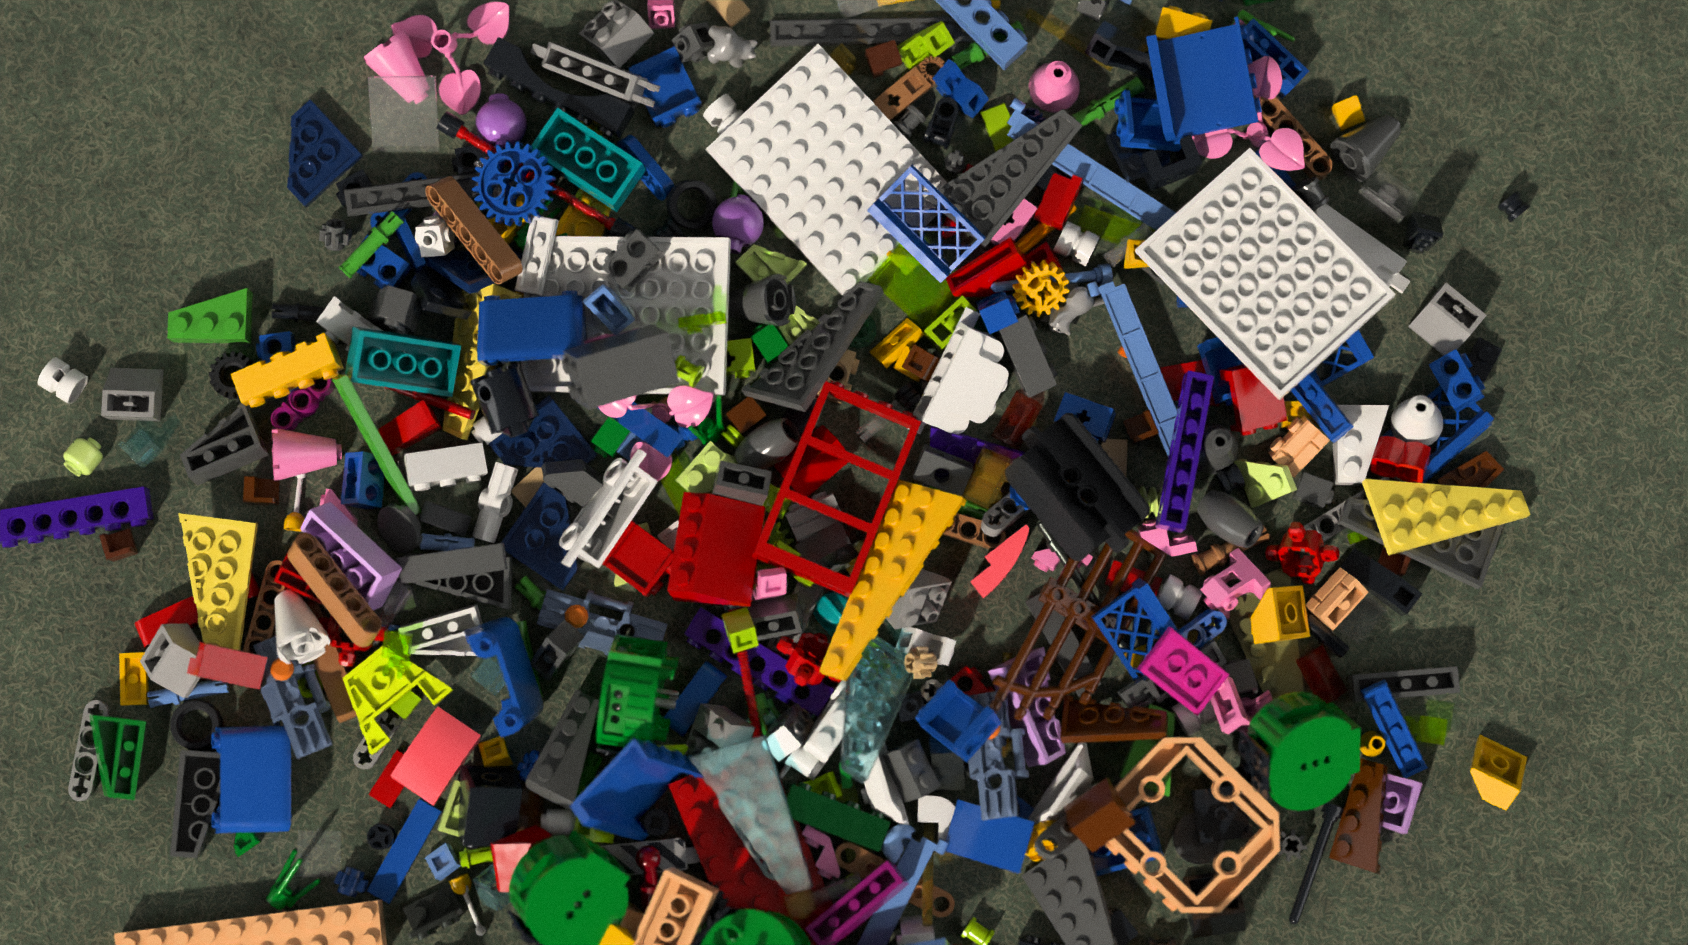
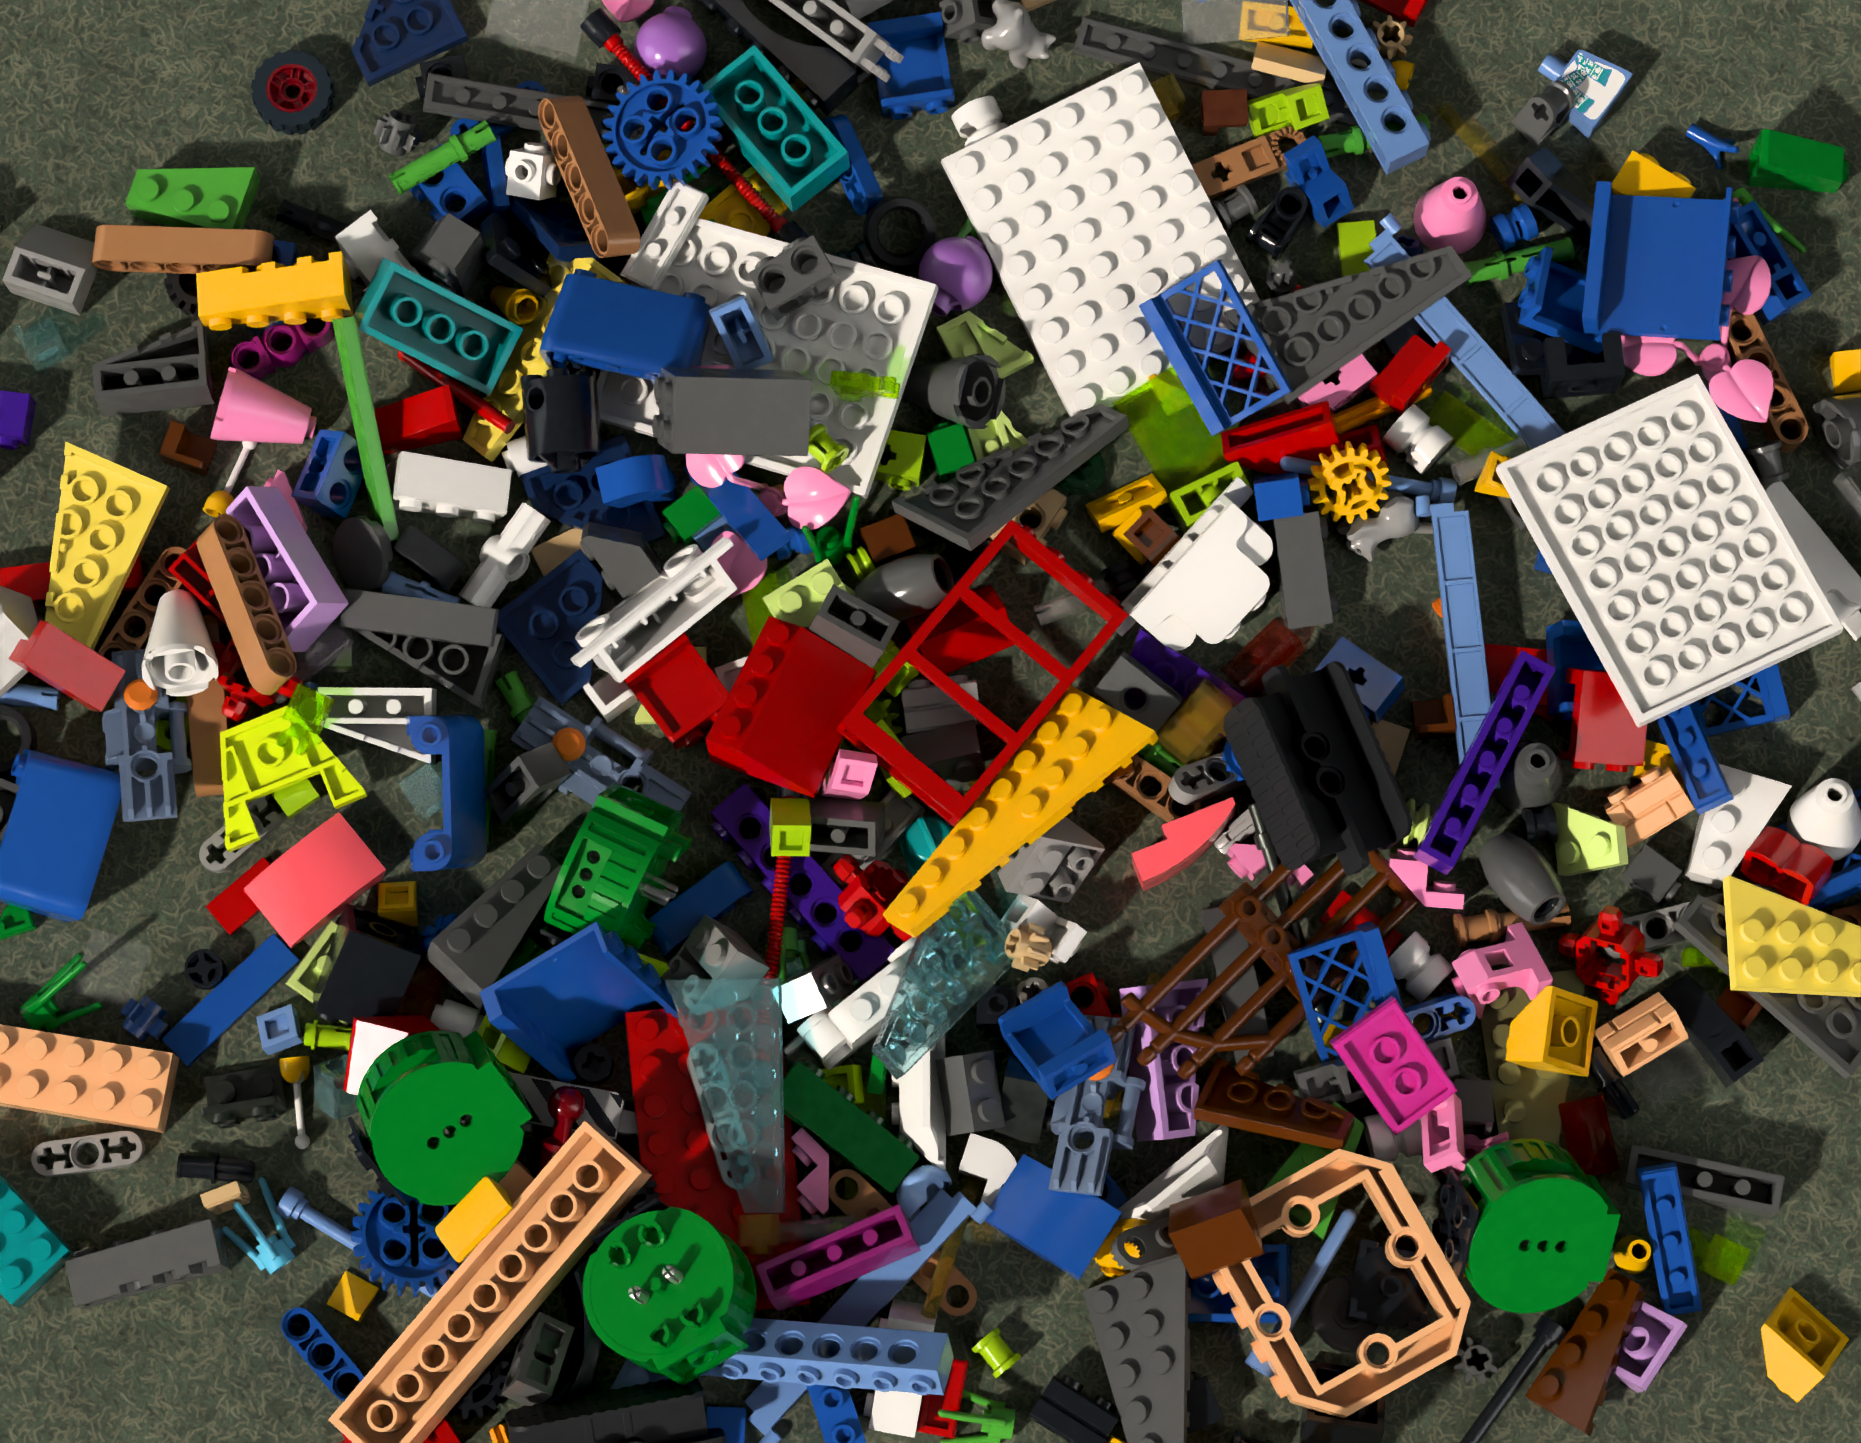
camera: 15 degrees right, 5 degrees down
(215, 359) = (179, 249): none -> medium nougat beam
(256, 212) = (296, 72): none -> black wheel
(450, 328) = (516, 304): none -> yellow cone
(567, 426) = (636, 480): none -> blue brick
(593, 576) = (610, 697): none -> white panel
(917, 12) = (1289, 63): none -> tan tile
(1035, 541) = (1238, 830): none -> light grey axle
(1098, 80) = (1513, 226): none -> blue wheel
(1169, 826) = (1310, 1280): none -> medium blue piece

